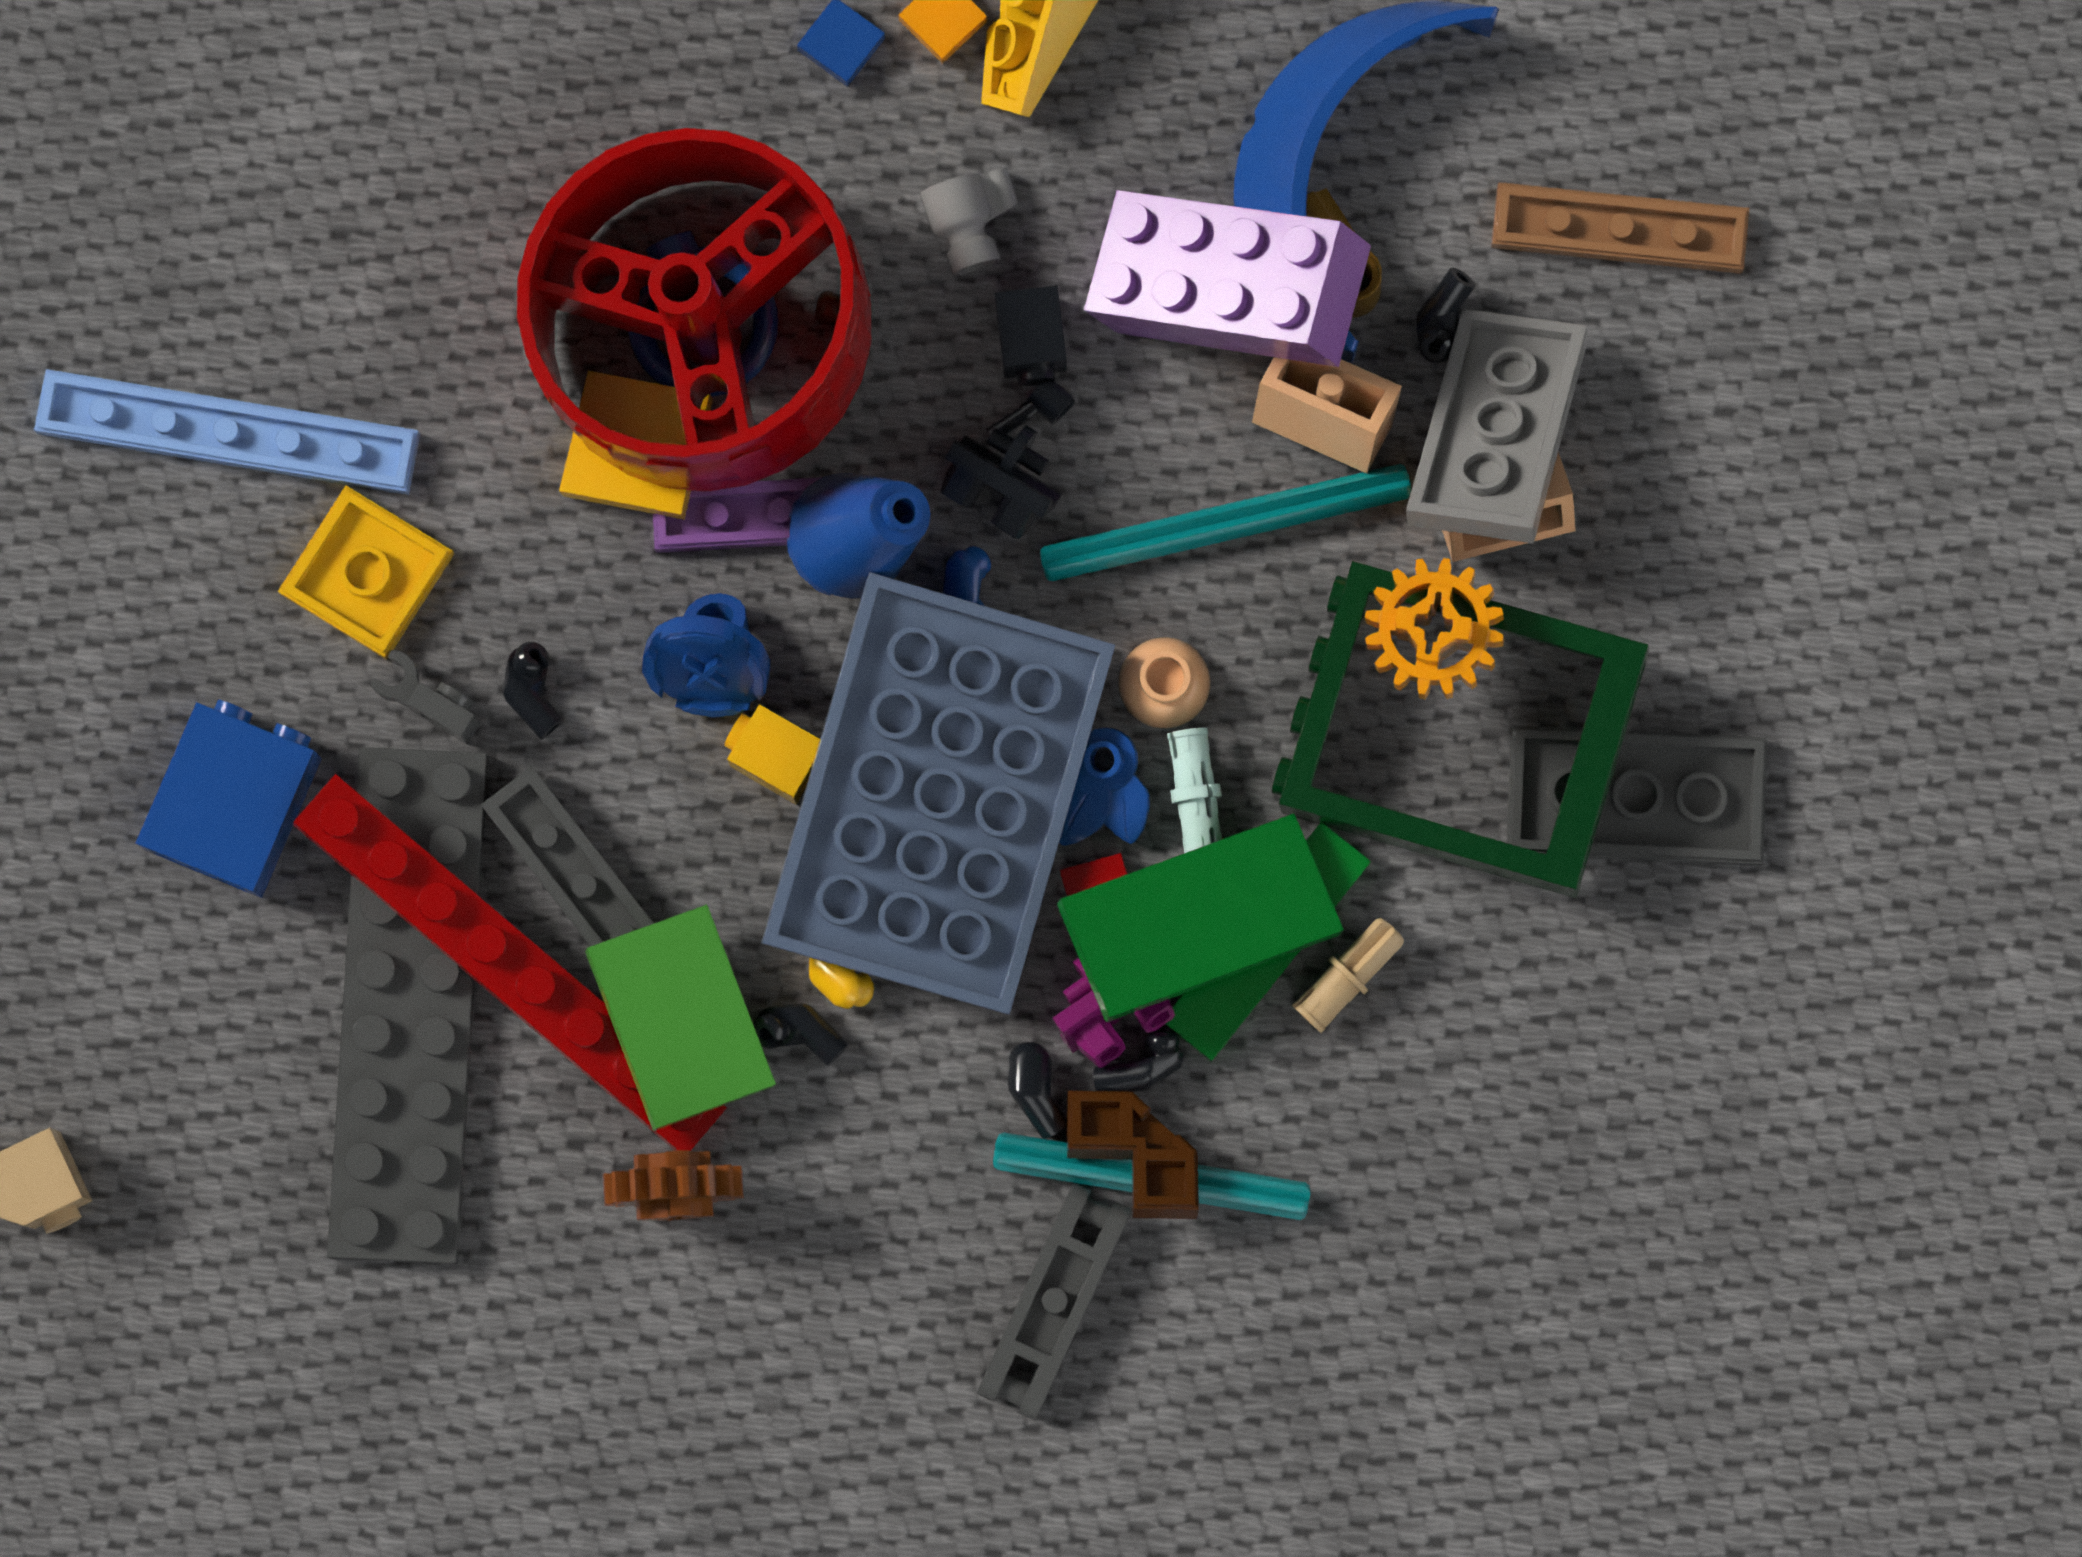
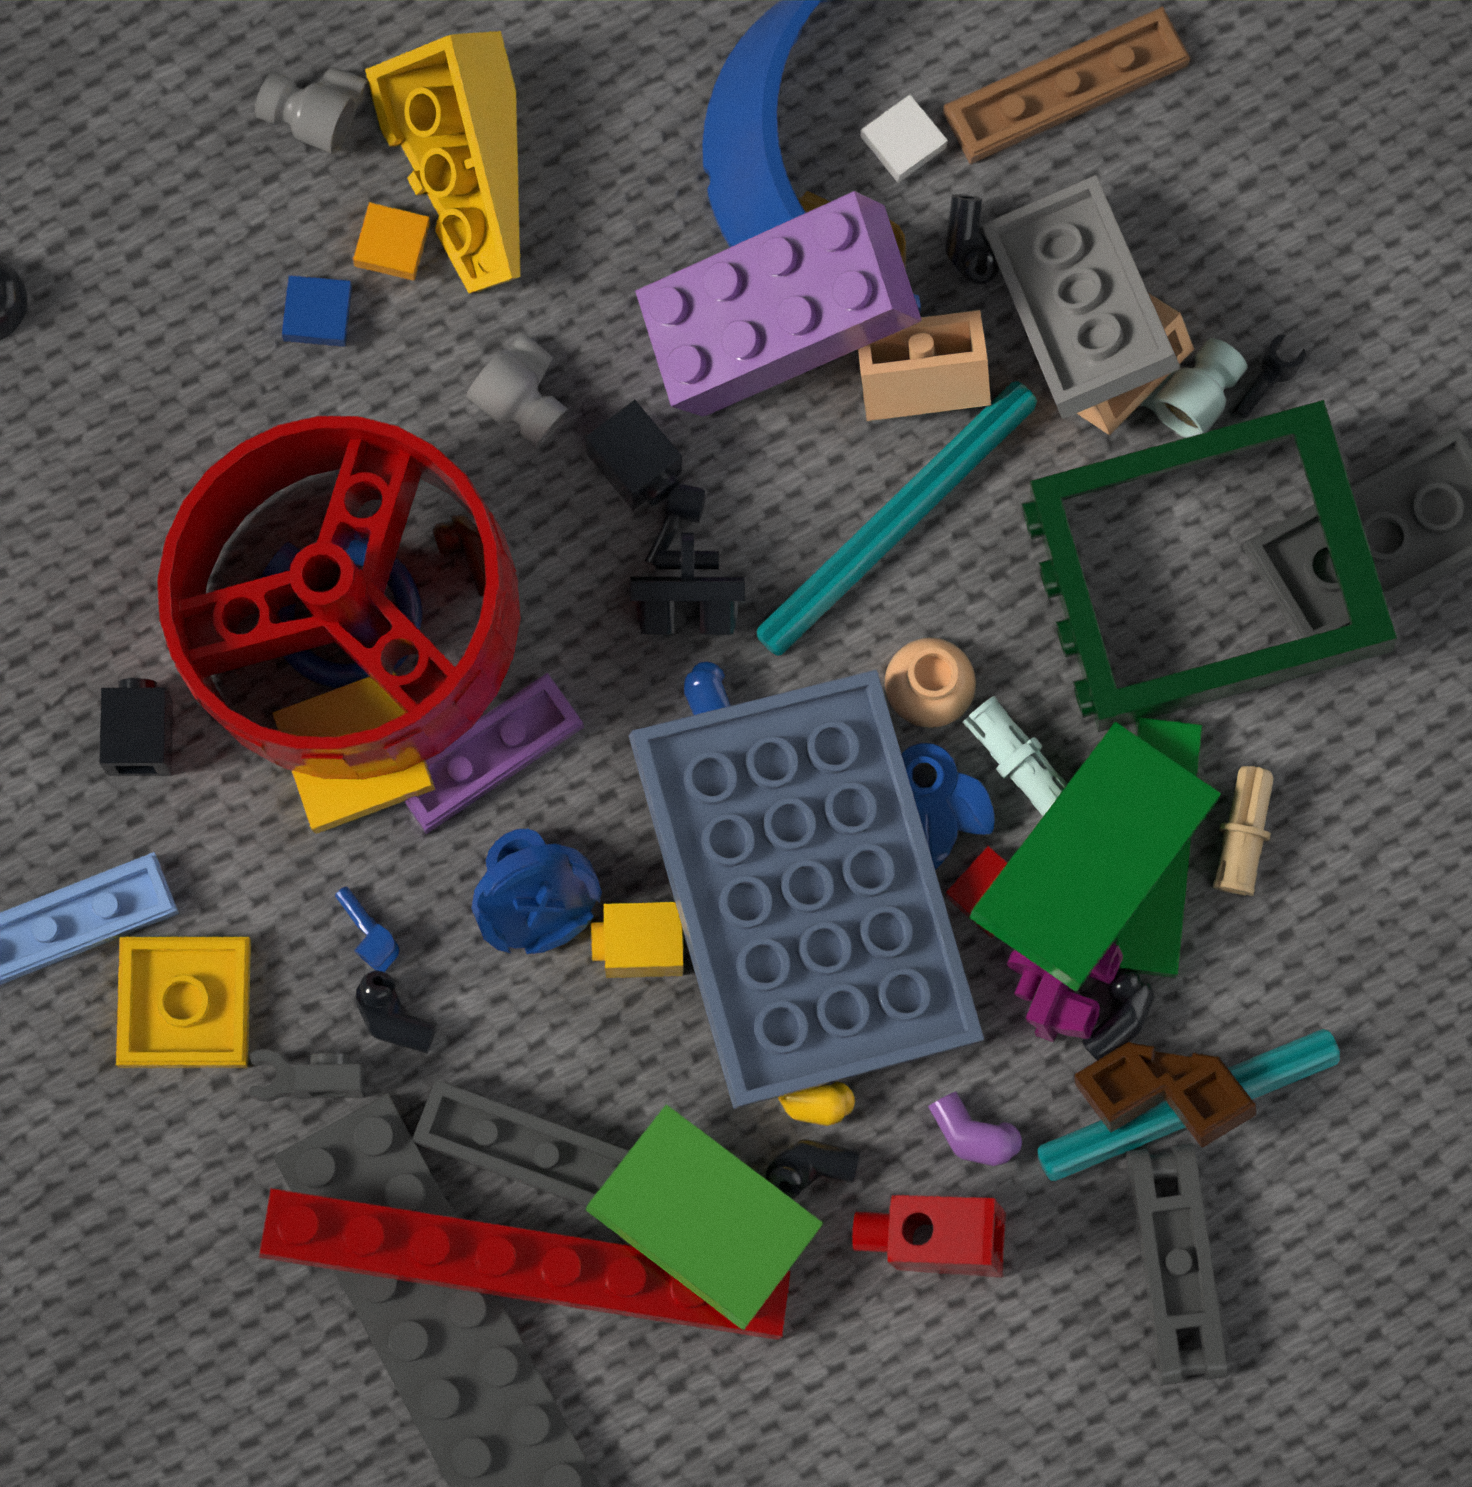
camera: 40 degrees left, 5 degrees down
(230, 797) = (185, 1269): blue brick -> none
(465, 316) = (136, 729): none -> black brick
(555, 624) = (378, 946): none -> blue hand
(673, 1185) = (792, 1366): dark orange gear -> none
(852, 528) = (593, 701): blue cone -> none
(881, 1163) = (964, 1240): none -> red torso
(950, 1093) = (973, 1139): none -> medium lavender arm
(1031, 1088) = (1041, 1092): black arm -> none
(1405, 623) = (1118, 503): light orange gear -> none
(1445, 190) = (904, 138): none -> white tile
(1549, 573) = (1194, 397): none -> light aqua piece
(1629, 594) = (1273, 371): none -> black hand

